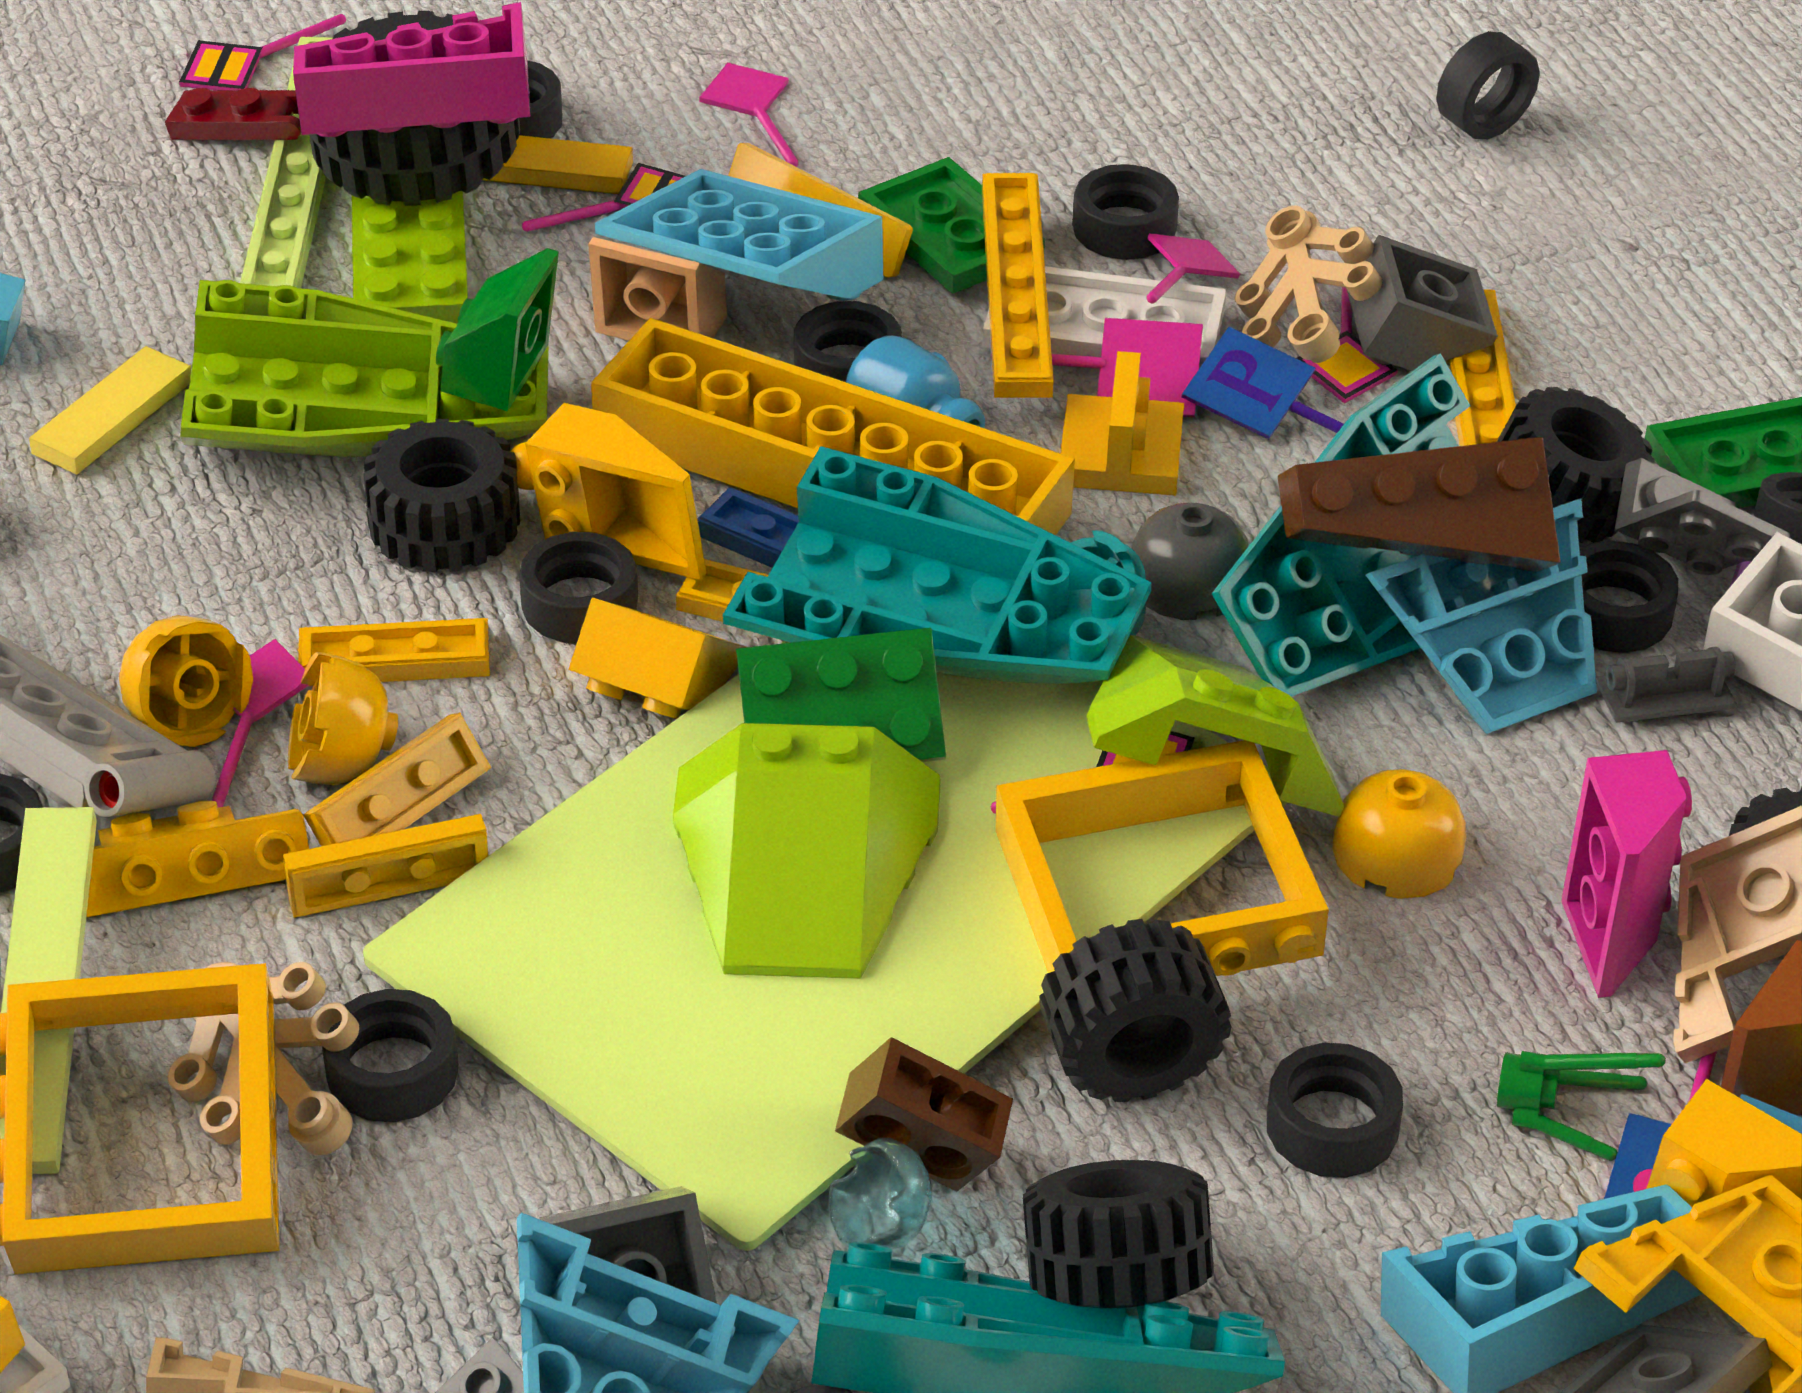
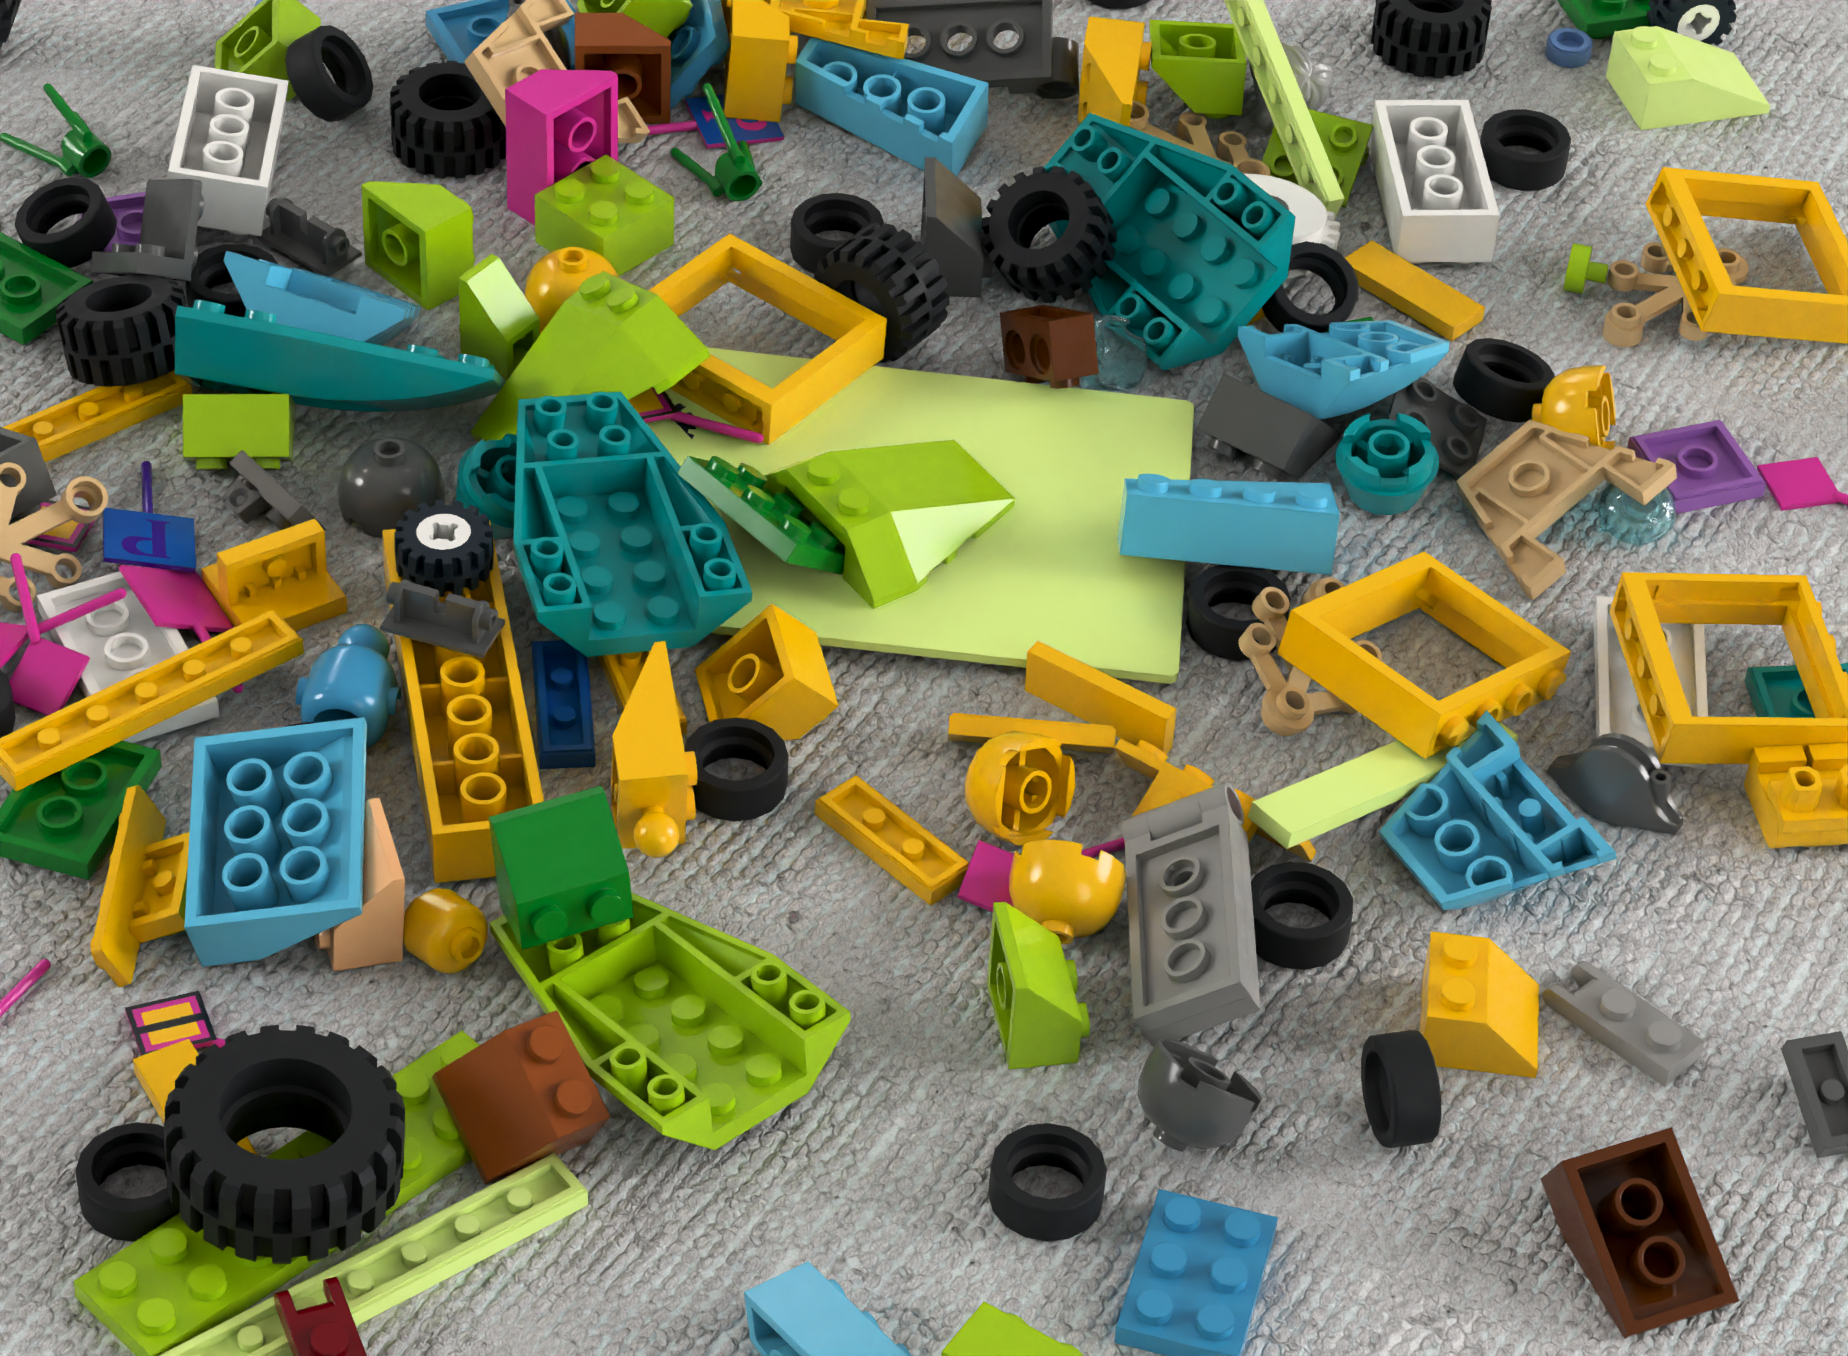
camera: 130 degrees left, 0 degrees up
(97, 580) = (1033, 992): none -> lime slope
(110, 410) = (806, 1177): light yellow tile -> none
(348, 261) = (521, 1097): none -> dark orange slope
(415, 76) = (331, 1024): dark pink wedge -> none
(441, 1299) = (1386, 463): none -> teal cone
(442, 495) = (730, 872): black tyre -> none
(459, 1092) = (1230, 522): none -> medium azure wedge
(582, 333) = (443, 927): none -> yellow head
(879, 418) = (455, 625): none -> dark grey hinge
(988, 451) = (444, 547): none -> black wheel
(1138, 262) = (46, 669): none -> dark pink piece
(1233, 475) = (257, 490): none -> dark grey hinge
(1246, 1154) = (953, 230): none -> dark grey slope
(1372, 715) = (495, 316): none -> lime slope
(1443, 502) = (341, 272): reddish brown wedge -> none
(1512, 910) = (606, 212): none -> lime brick
(1556, 713) = (417, 238): none -> lime slope

